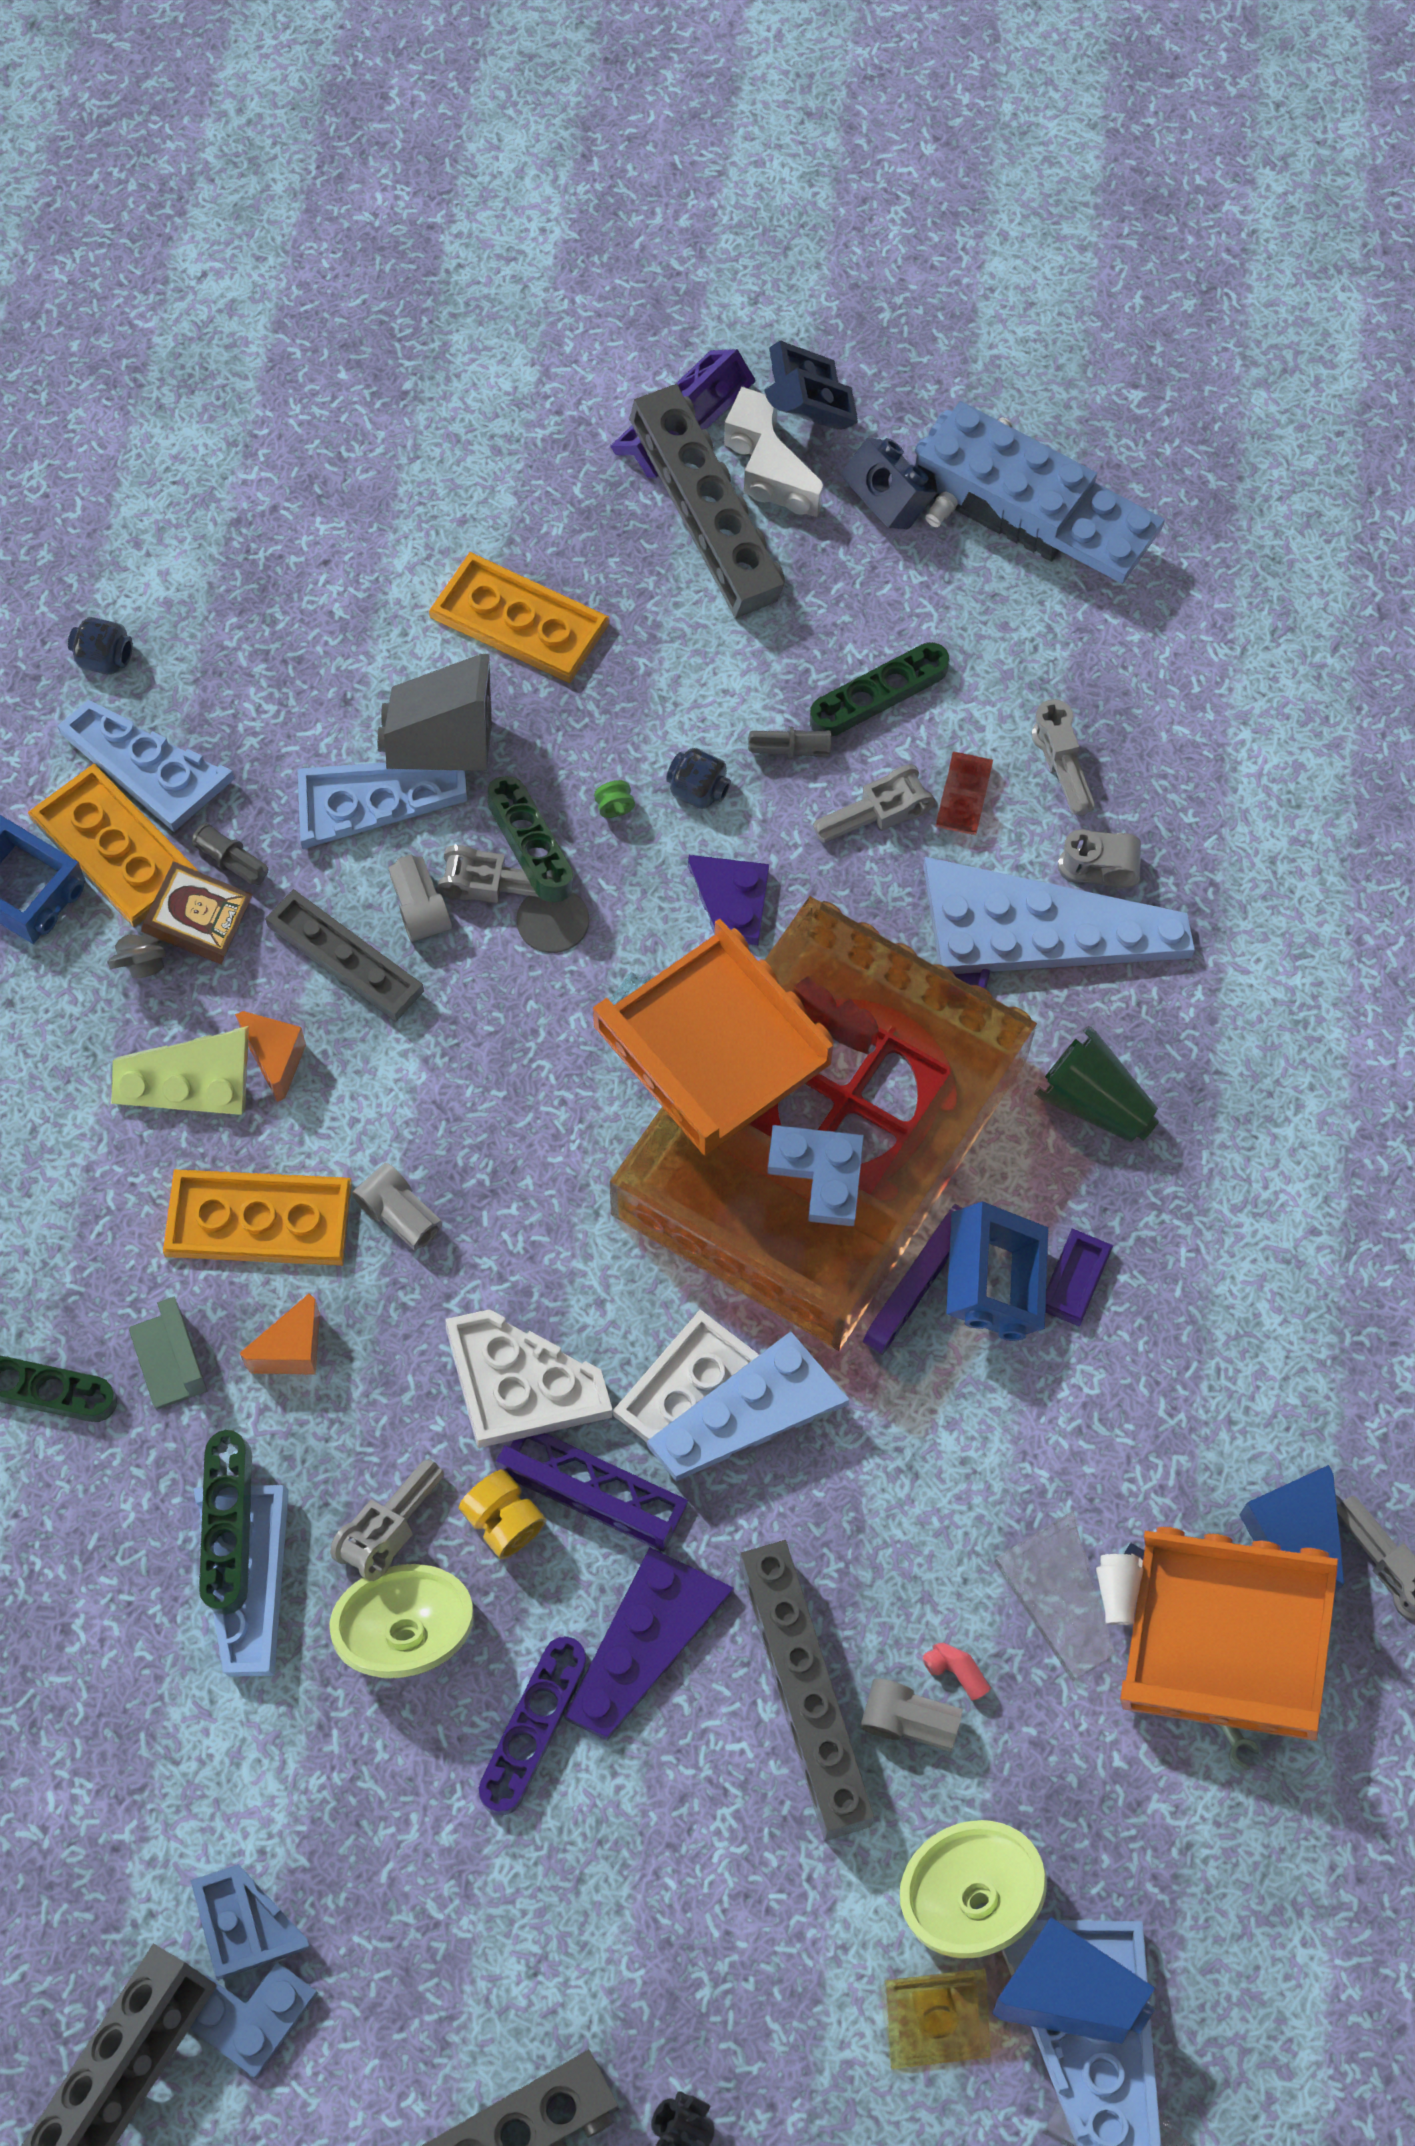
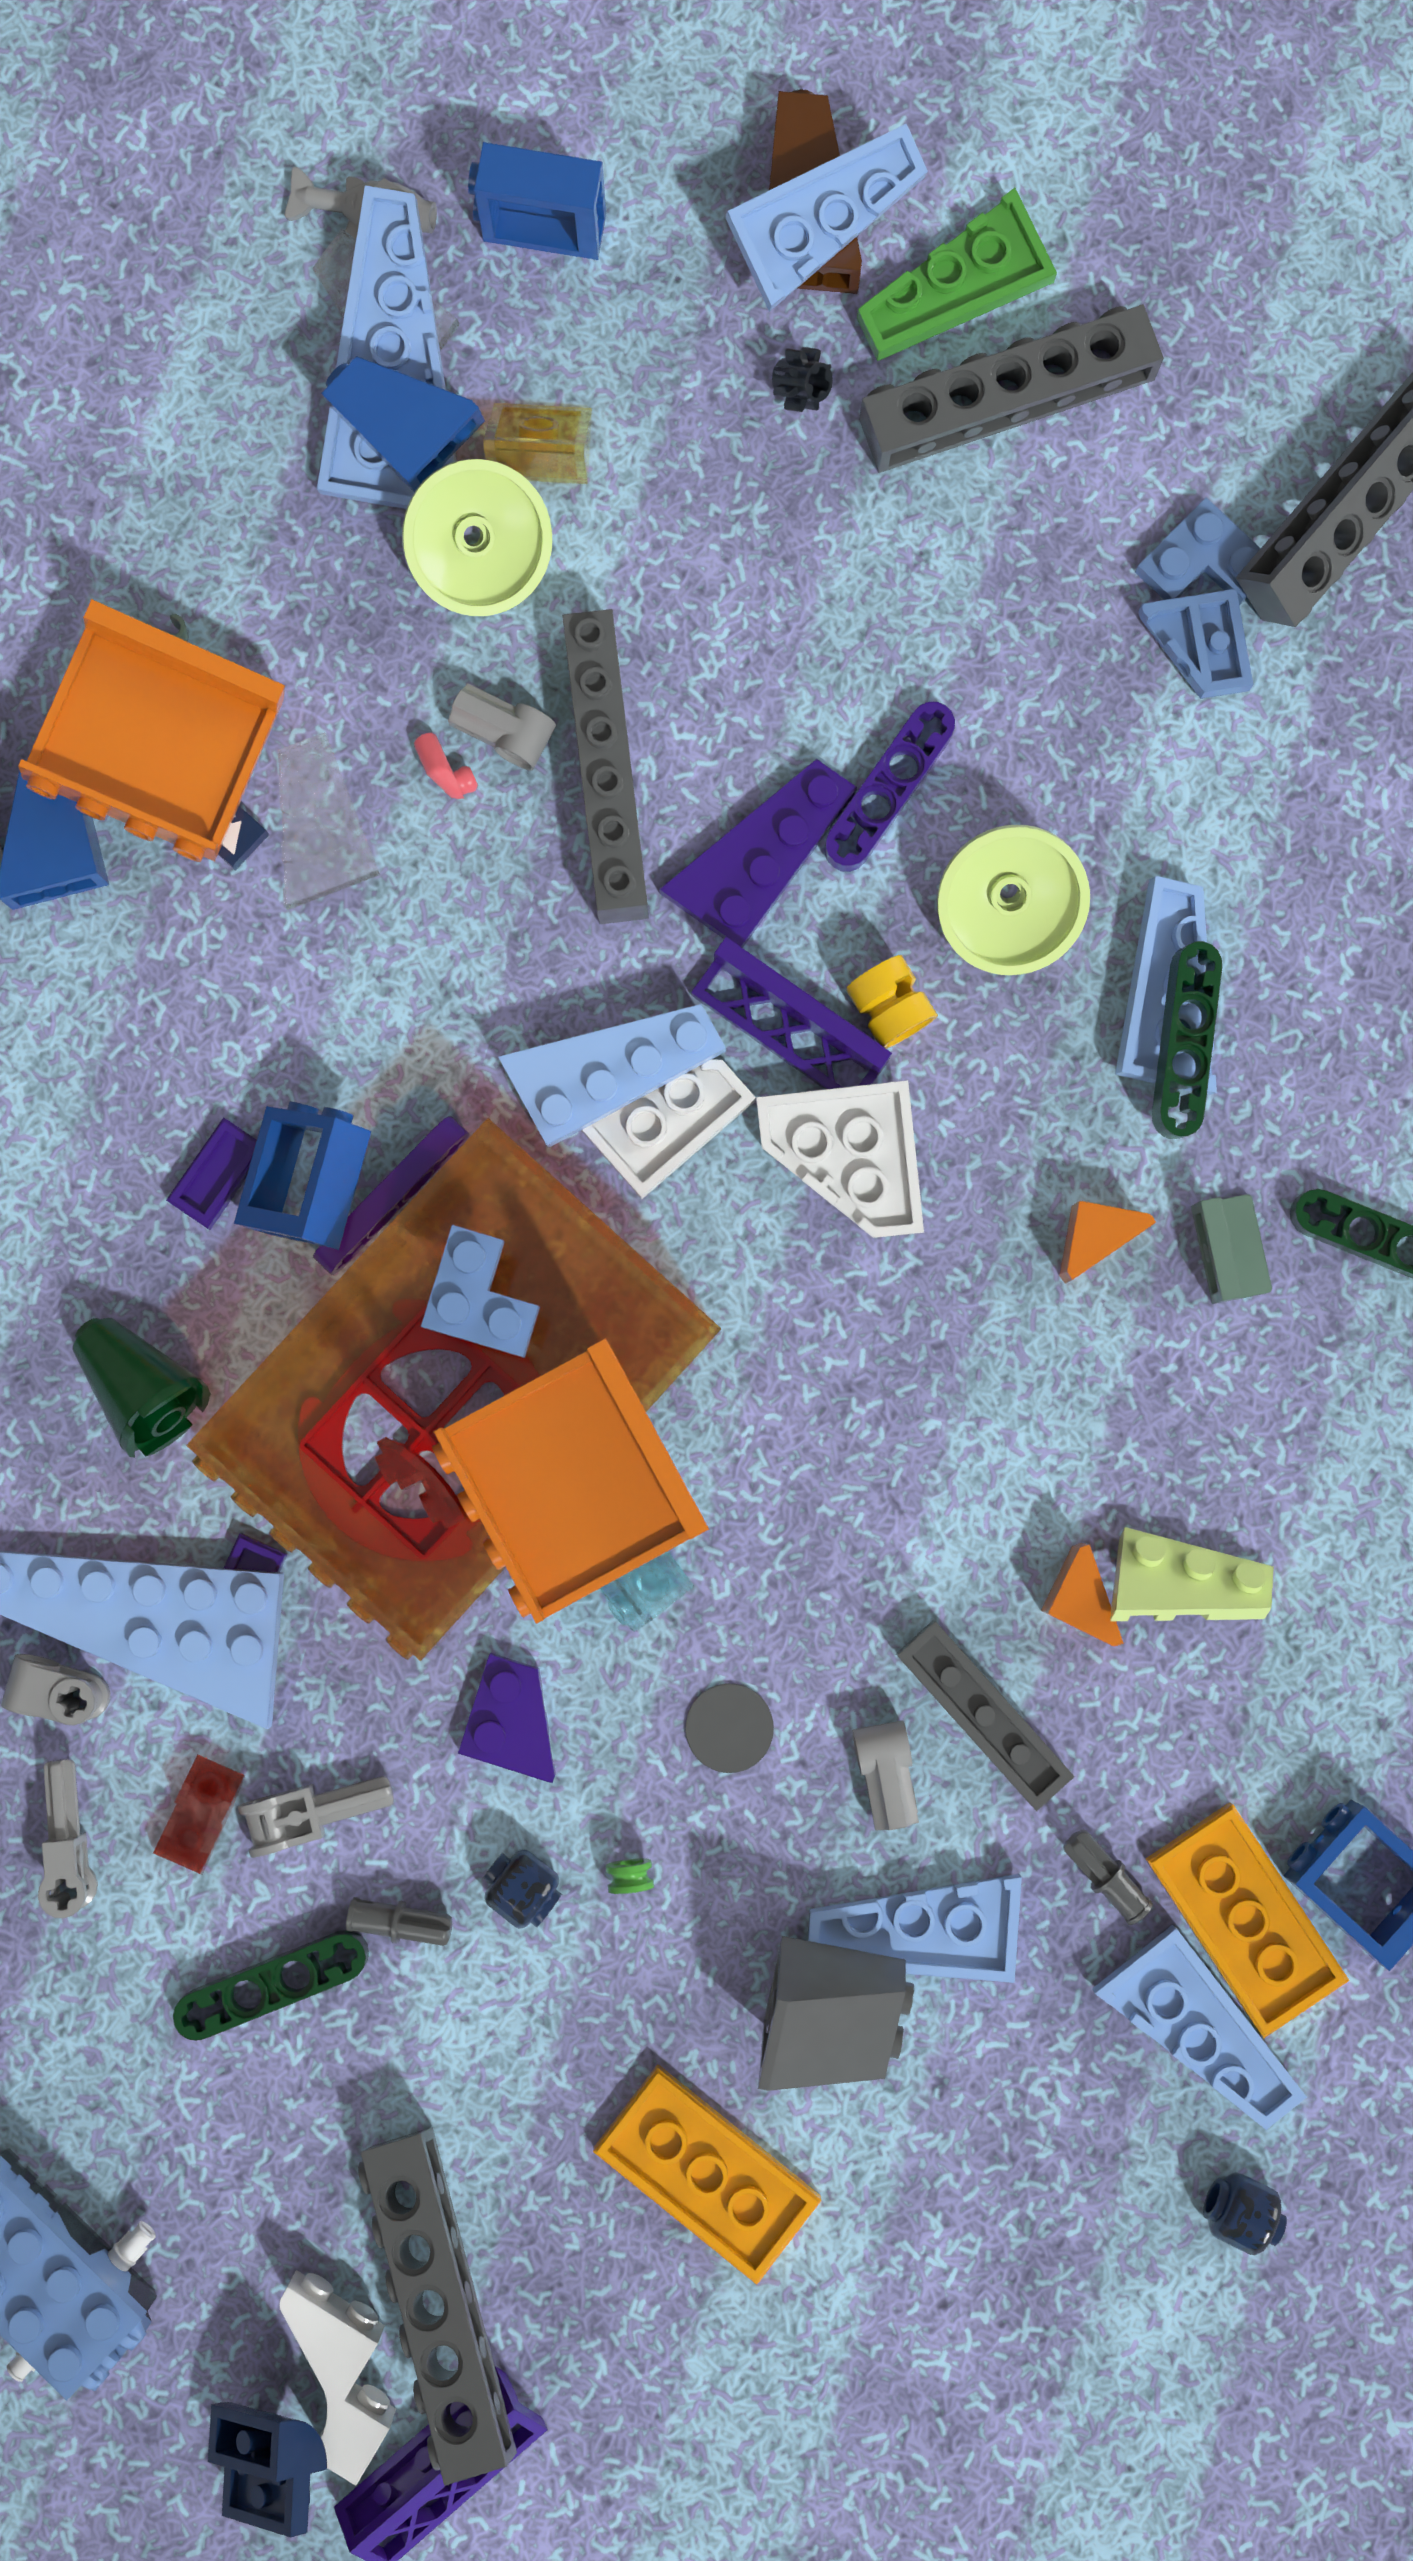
camera: 170 degrees left, 20 degrees up
(140, 954) = (1224, 1759): dark grey animal -> none
(196, 913) = (1155, 1796): tile -> none
(257, 1217) = (1117, 1399): light orange tile -> none
(383, 1530) = (1022, 1011): light grey connector -> none
(390, 1199) = (968, 1391): light grey piece -> none
(480, 876) = (801, 1792): light grey connector -> none
(528, 838) = (742, 1832): dark green beam -> none
(869, 477) = (217, 2305): dark blue brick -> none
(1119, 1586) = (255, 812): white cone -> none

